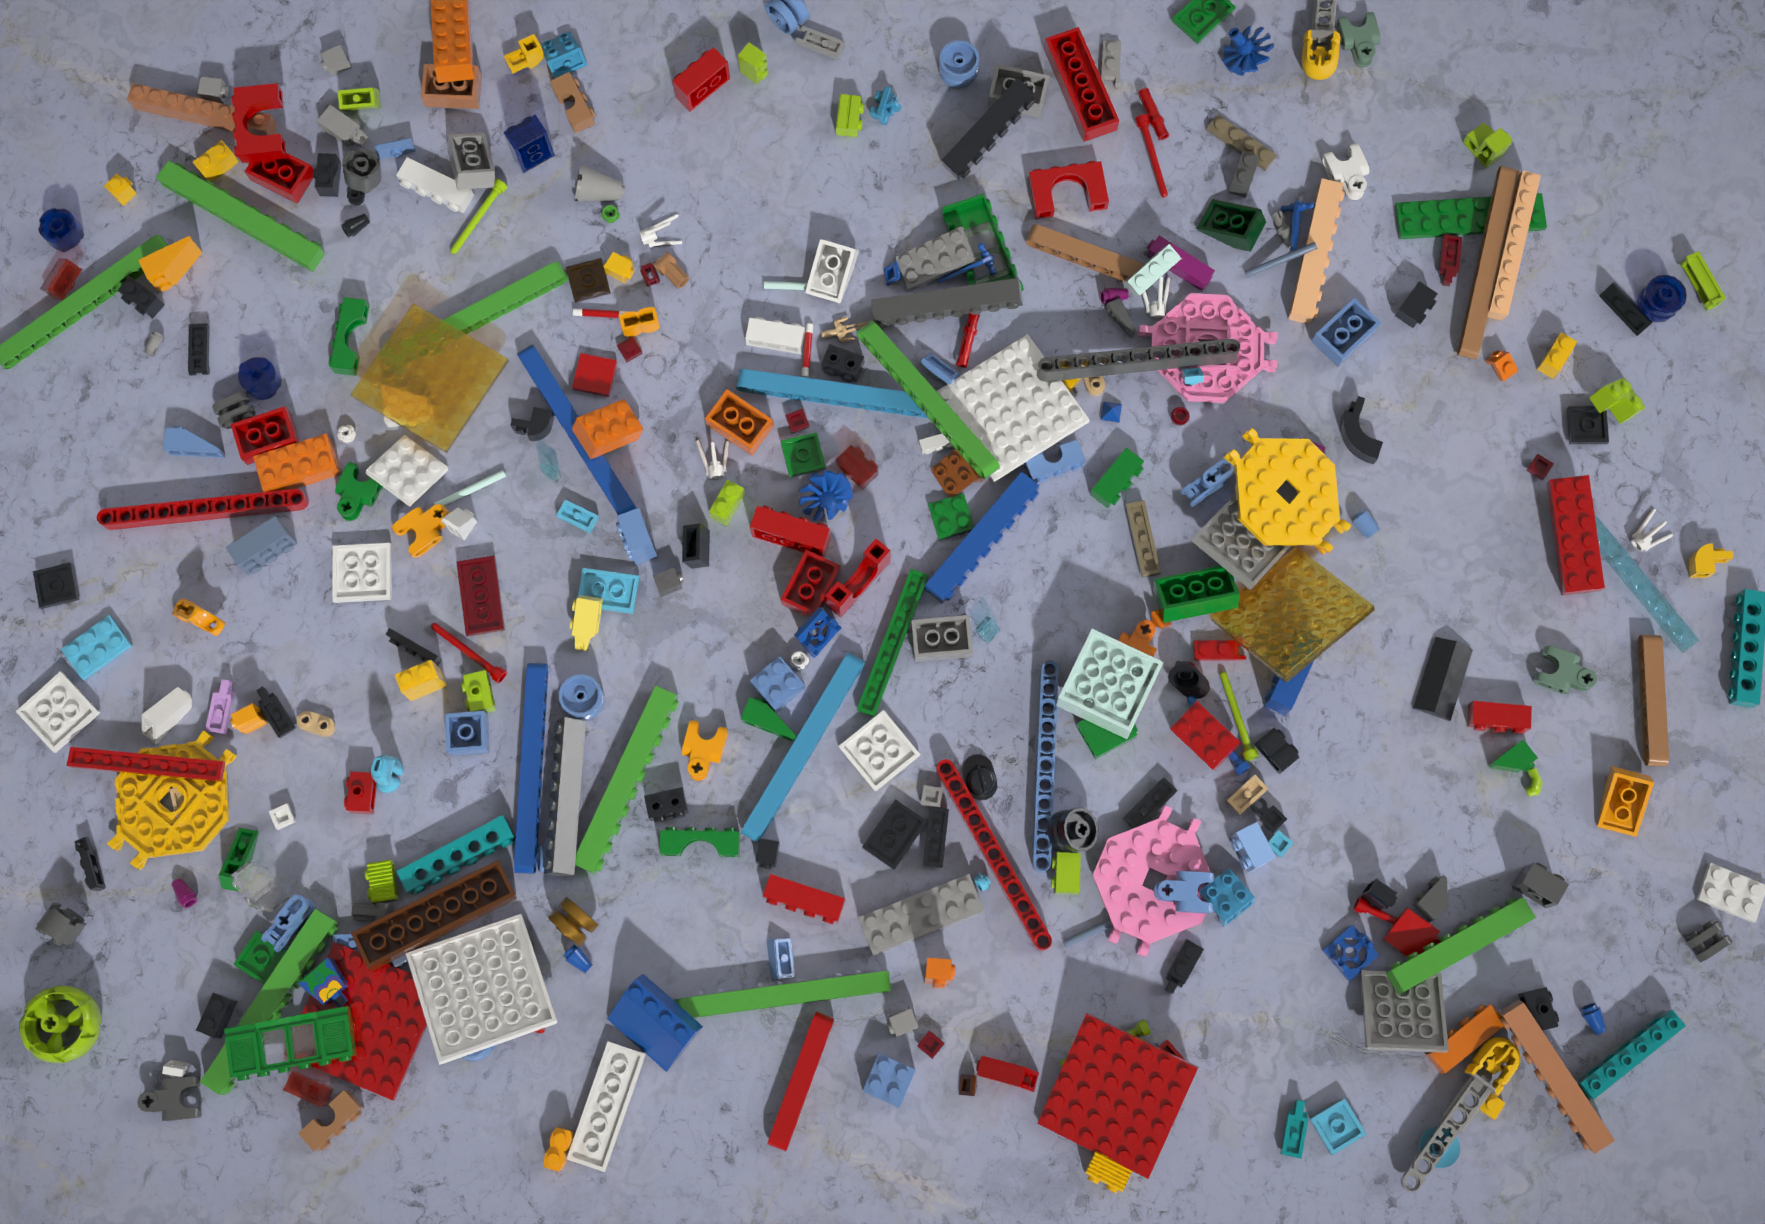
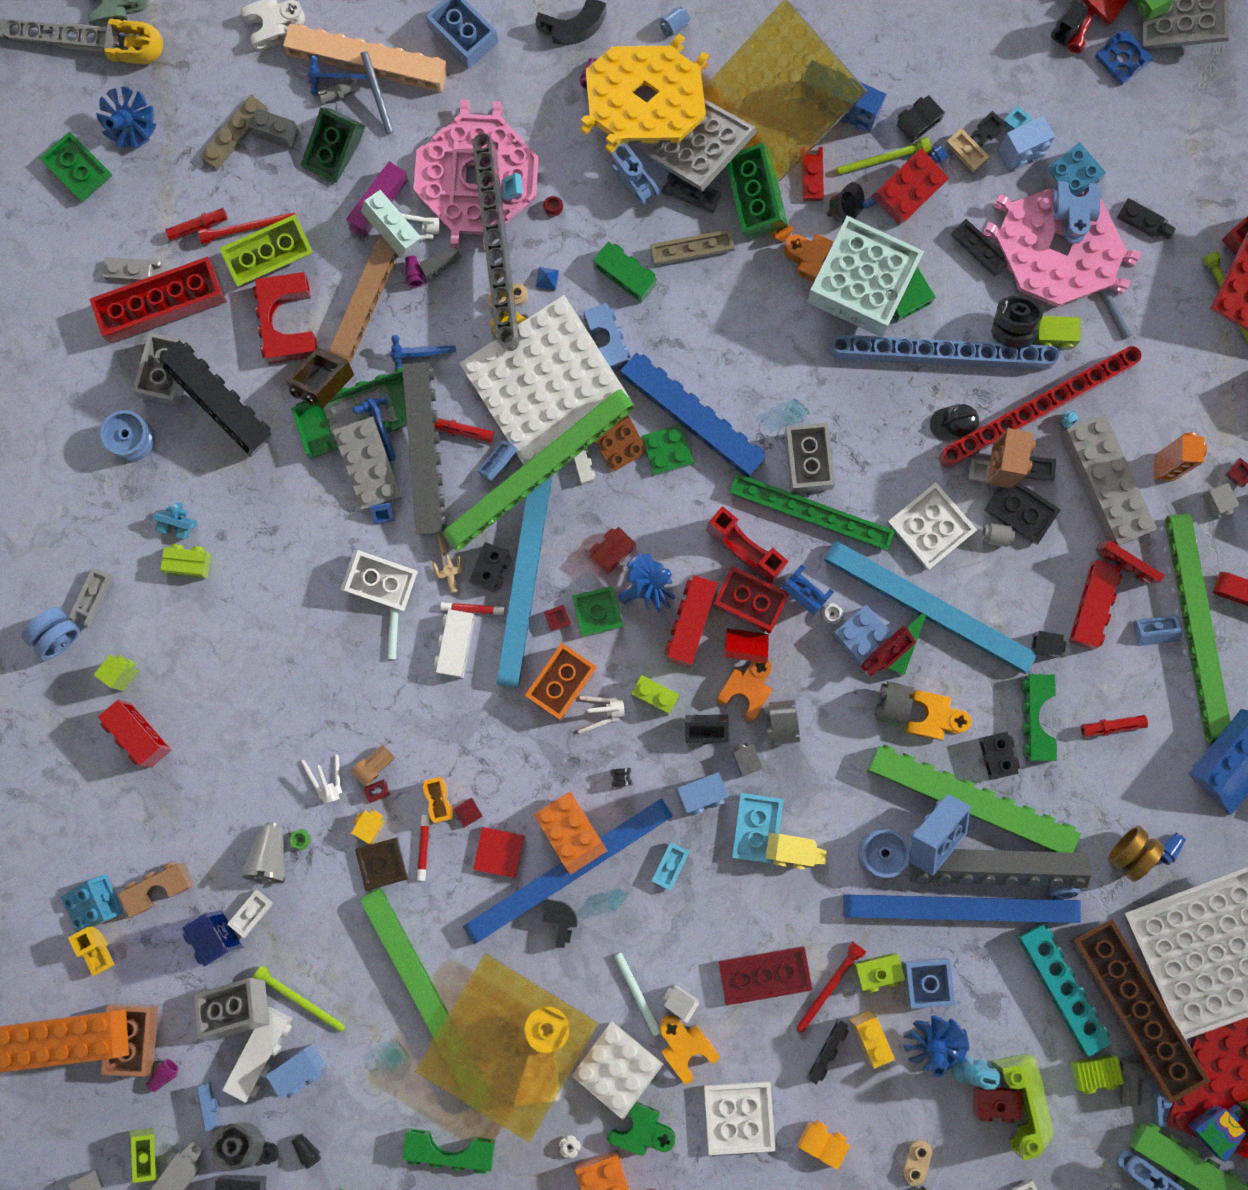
camera: 90 degrees left, 5 degrees up
(335, 642) = (823, 1144): none -> light orange brick
(377, 818) = (1024, 1074): none -> lime windscreen
(412, 740) = (943, 1044): none -> blue piece
(418, 213) = (301, 1068): none -> medium blue brick
(423, 114) = (162, 1075): none -> magenta cone
(428, 292) = (394, 1056): none -> clear light blue plate
(440, 396) = (534, 1033): none -> yellow plate
(550, 176) = (250, 913): none -> white plate
(594, 741) = (939, 834): none -> medium blue brick
(655, 474) = (621, 777): none -> black wheel
(690, 904) = (1106, 727): none -> red pin
(699, 611) = (783, 722): none -> dark grey brick
(713, 708) = (894, 704): none -> dark grey brick
(734, 585) = (750, 685): none -> orange piece
(760, 702) = (889, 651): none -> dark red hinge
(769, 580) = (746, 645): none -> red tile
(841, 928) = (1129, 562): none -> red plate
(870, 810) = (998, 535): none -> light grey brick
(936, 812) = (1010, 458): none -> nougat brick
(1002, 223) = (340, 374): none -> dark brown window
(1038, 299) = (397, 352): none -> blue piece
(1128, 170) = (266, 250): none -> lime slope
(1191, 552) = (703, 199): none -> black plate

